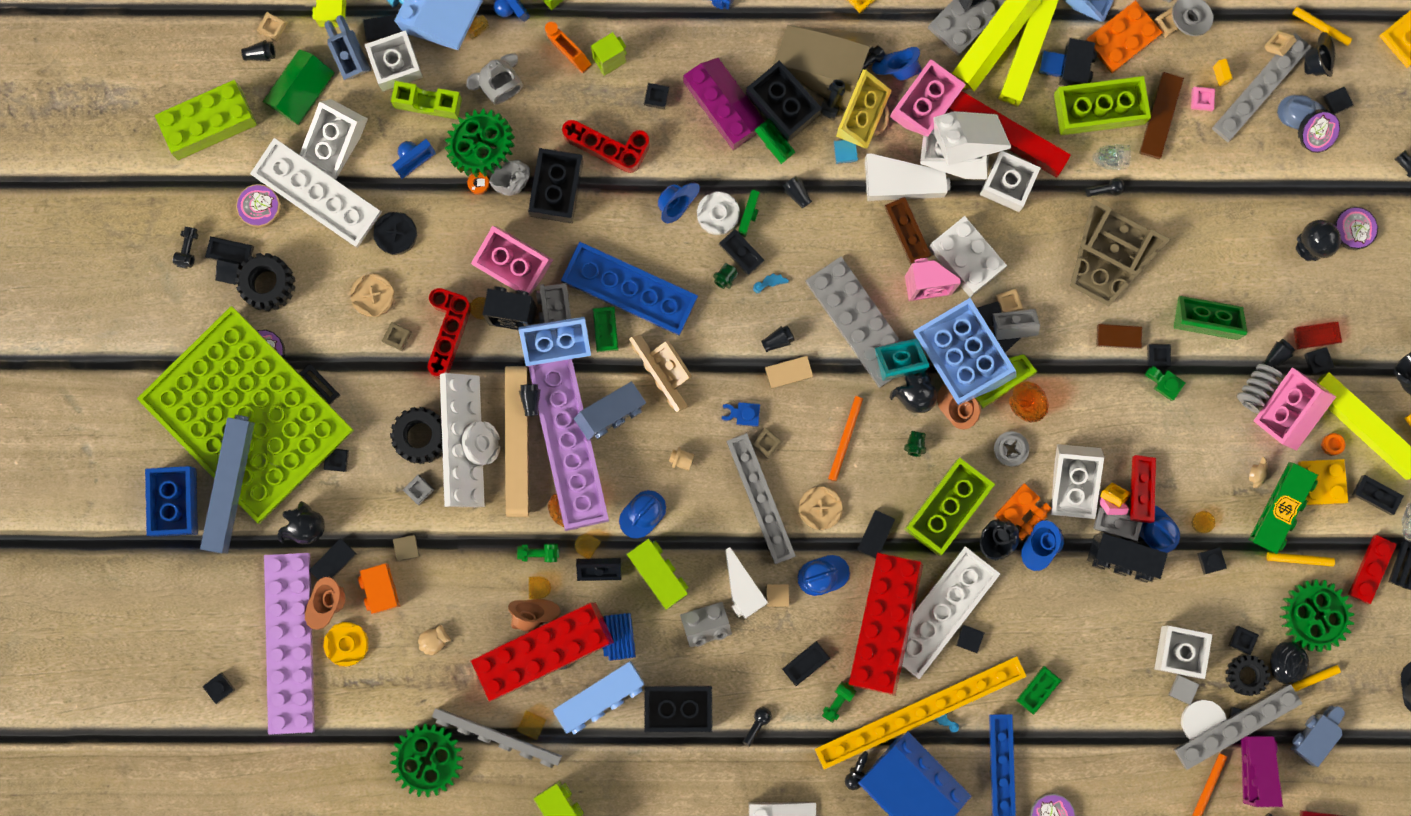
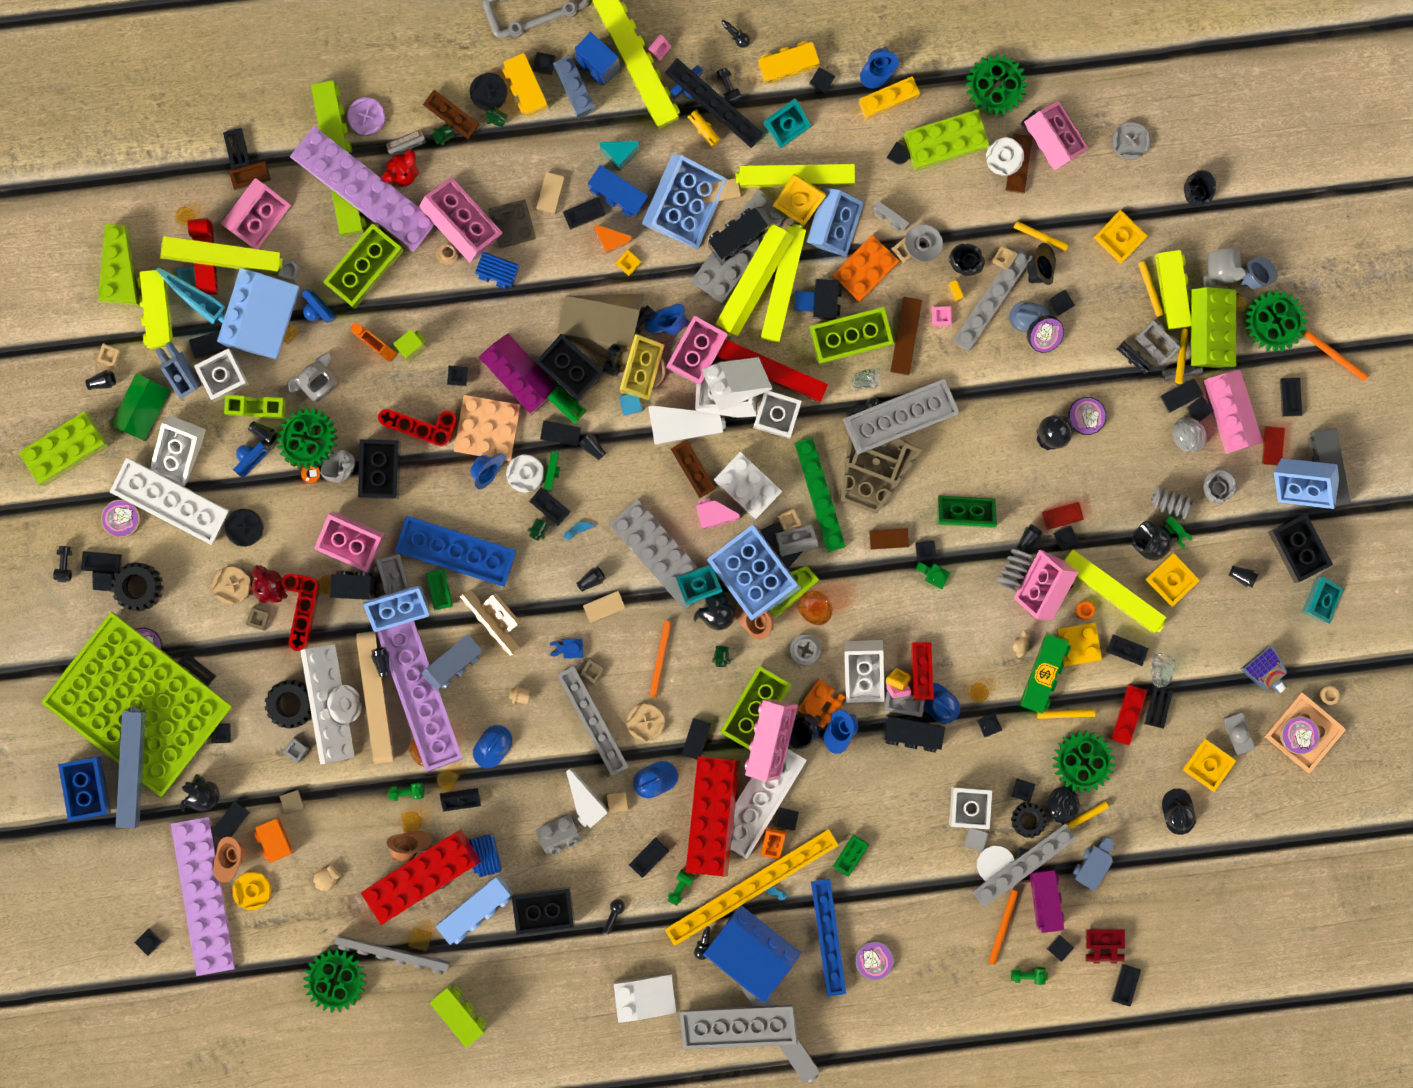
camera: 10 degrees left, 5 degrees up
(415, 299) = (270, 584): none -> dark red hair
(432, 132) = (263, 433): none -> black cone
(658, 573) = (511, 798): lime brick -> none
(681, 156) = (487, 427): none -> light nougat plate
(763, 173) = (560, 433): none -> black tile
(951, 664) = (773, 842): none -> orange slope
(964, 543) = (771, 740): none -> bright pink slope
(1046, 278) = (819, 494): none -> green plate
(1149, 200) = (901, 416): none -> light grey plate
(1238, 39) = (967, 259): none -> black hair

